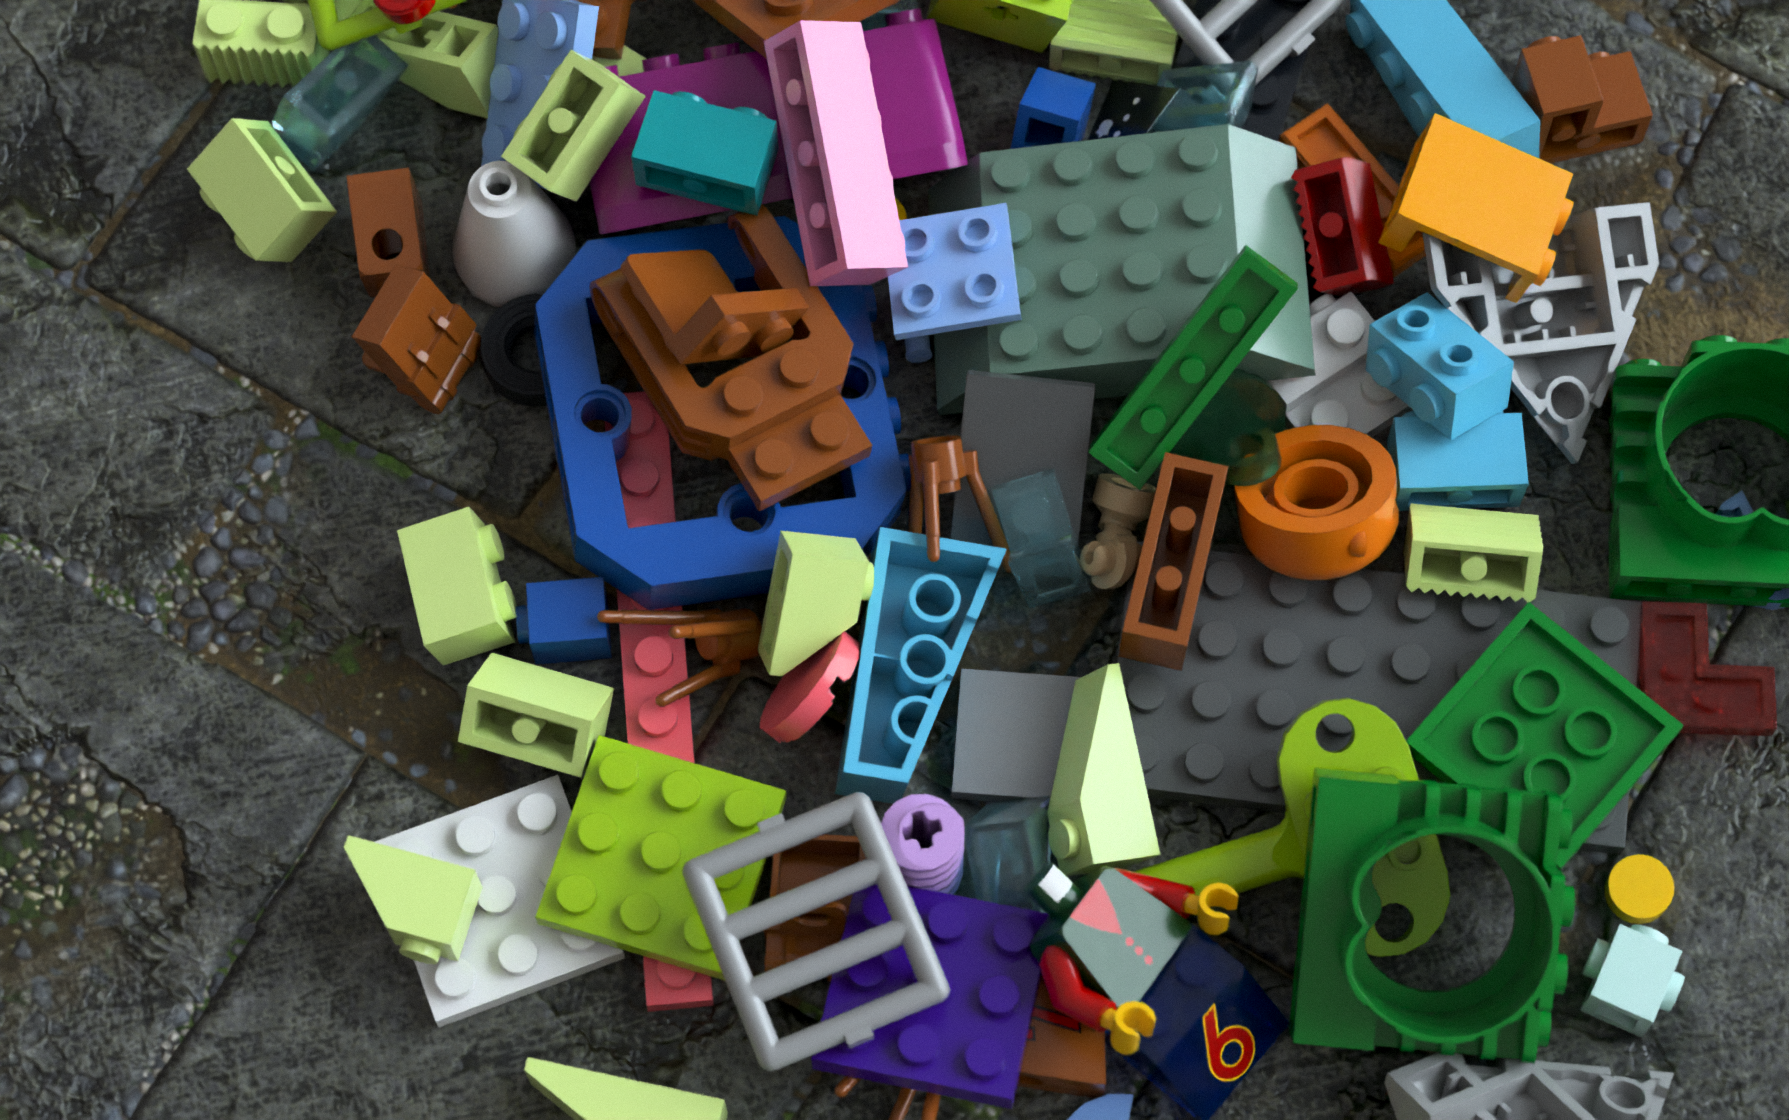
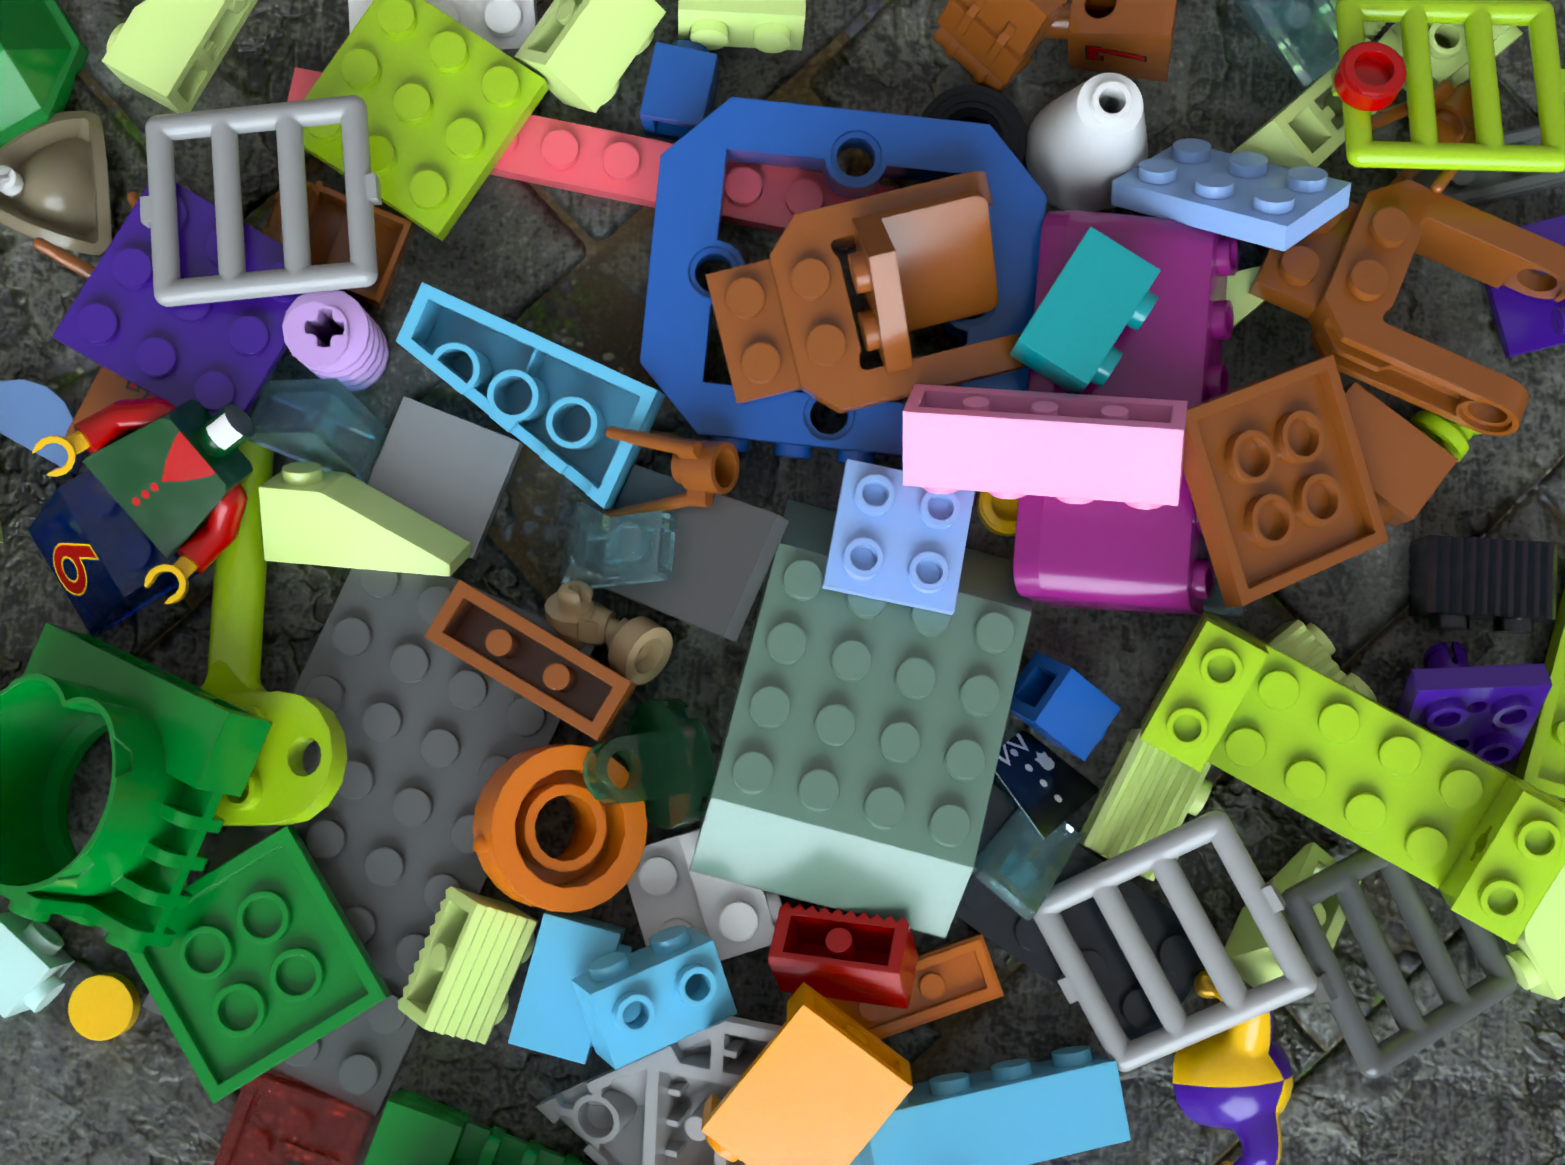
camera: 105 degrees right, 15 degrees up
(572, 126) = (1155, 189): yellowish green brick -> none
(718, 636) = (613, 226): dark orange plant -> none
(805, 692) = (537, 287): coral tile -> none
(811, 596) = (607, 307): yellowish green slope -> none
(1193, 367) = (704, 740): green plate -> none

